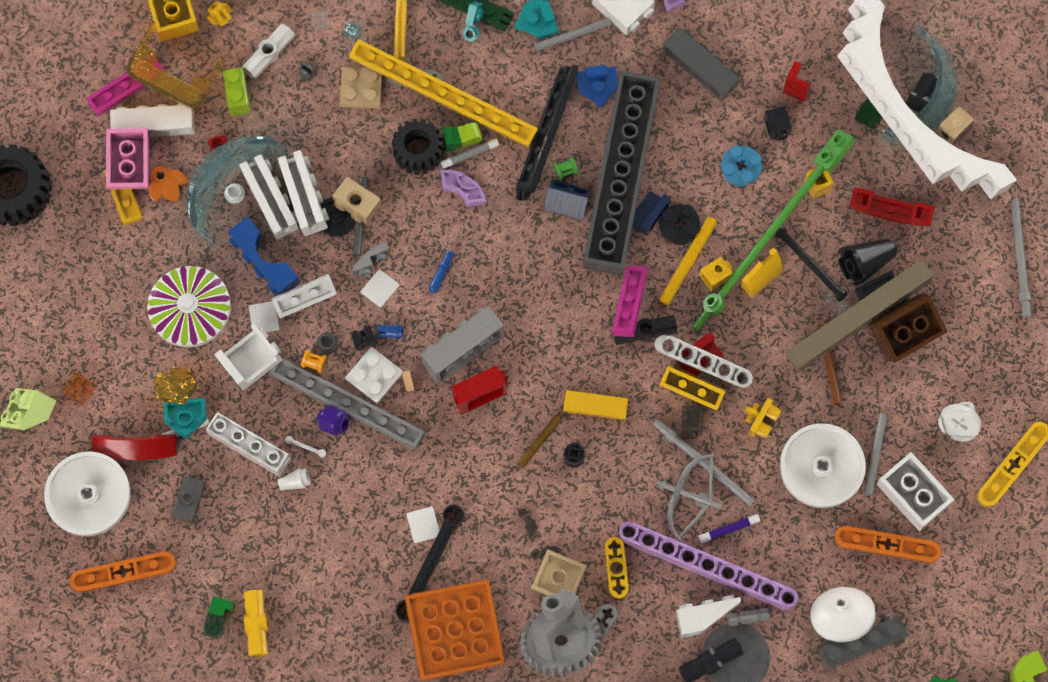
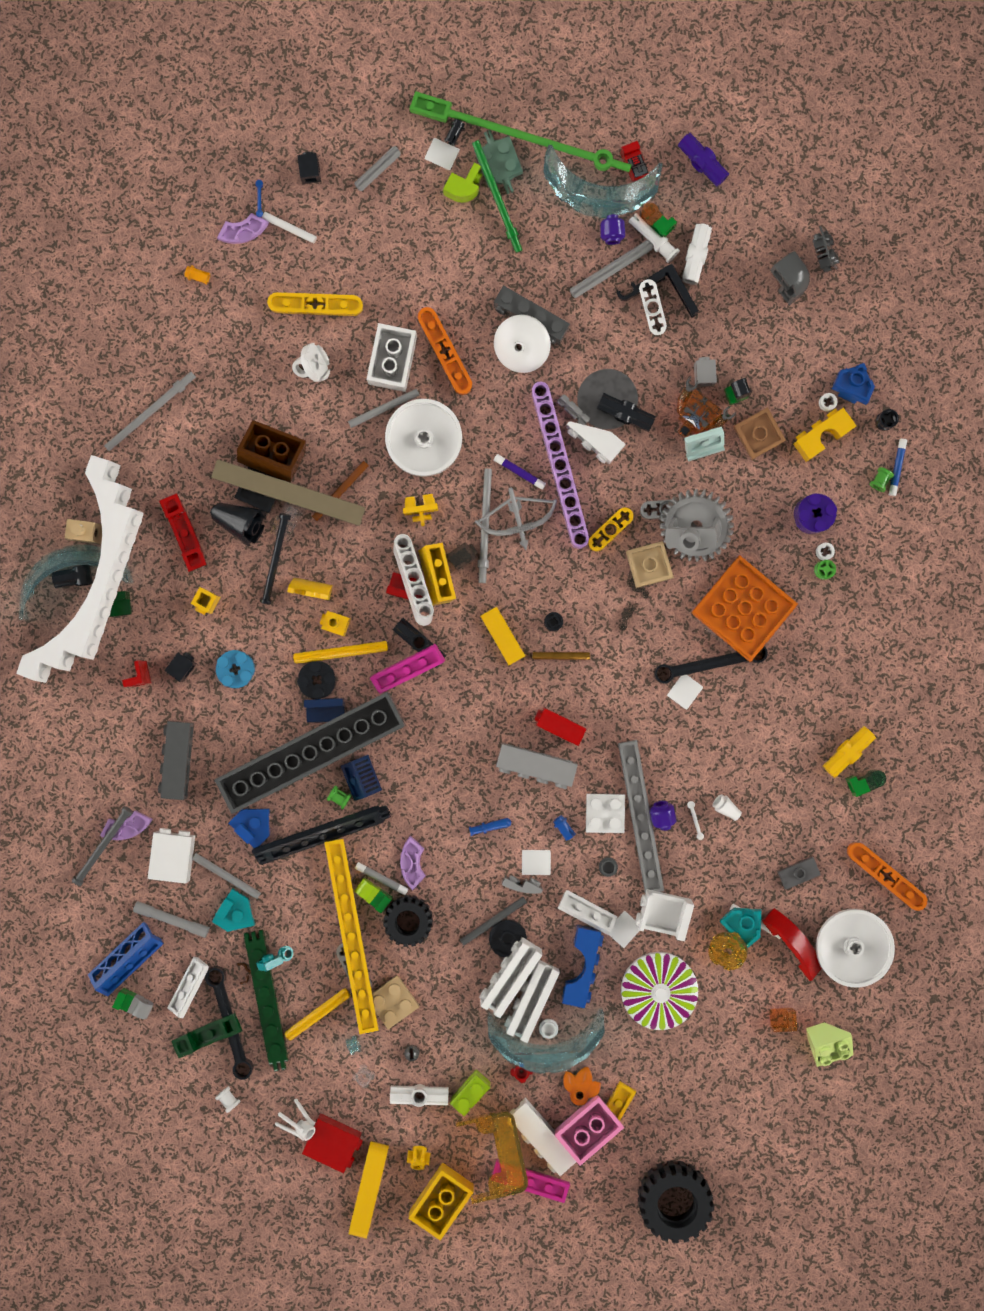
camera: 130 degrees left, 15 degrees up
(248, 444) = (728, 862): white brick -> none
(314, 361) = (630, 865): light orange bush -> none
(351, 190) = (483, 943): tan brick -> none
(358, 339) = (588, 846): black wheel -> none
(408, 381) = (591, 784): light nougat tile -> none
(825, 160) = (185, 604): bright green bar -> none

